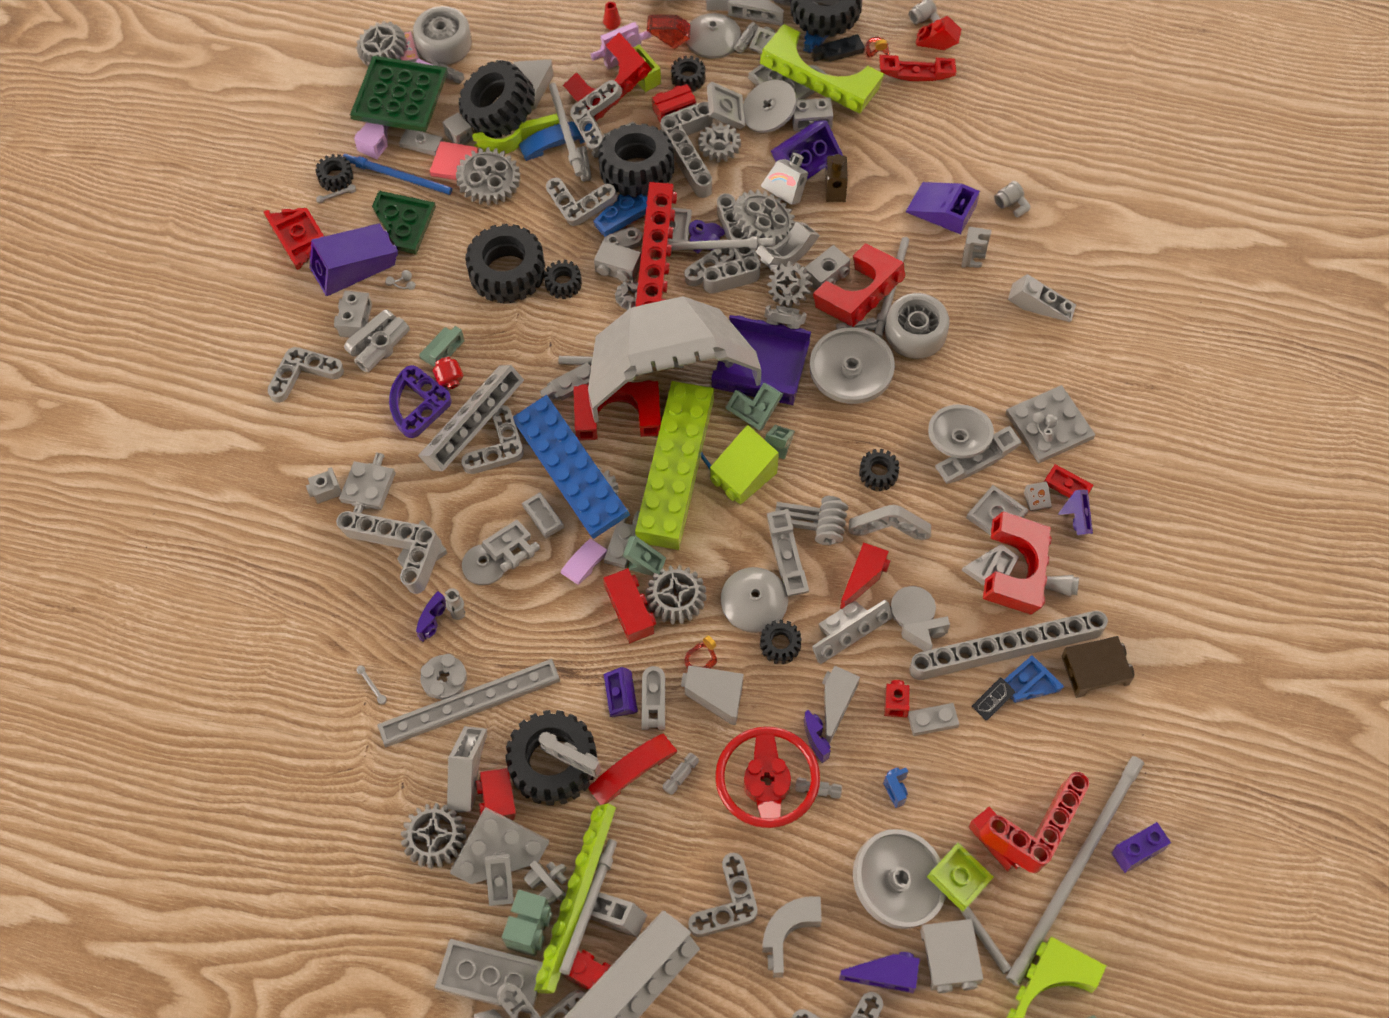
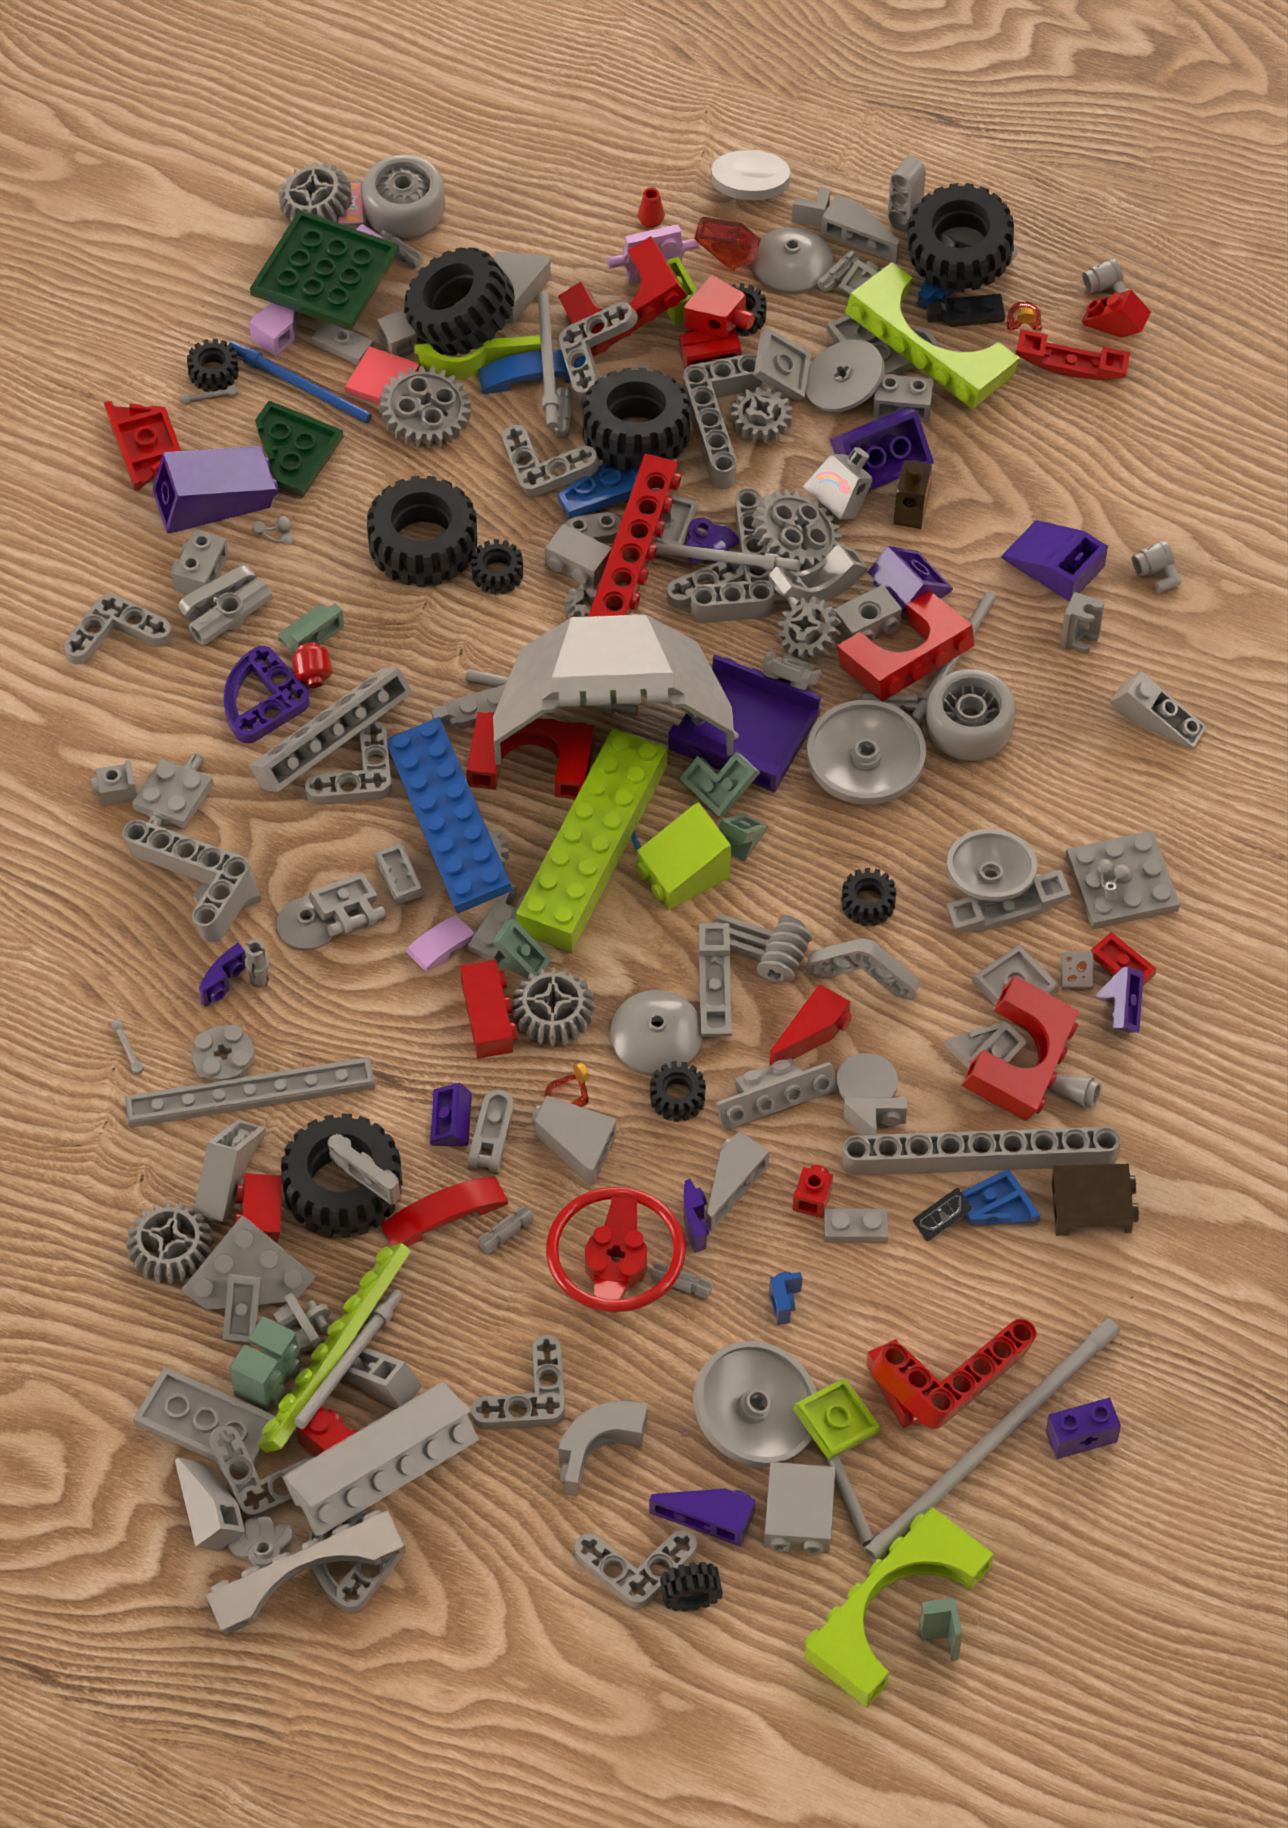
camera: 10 degrees right, 5 degrees down
(674, 75) = (717, 309): none -> torso
(846, 236) = (907, 575): none -> slope

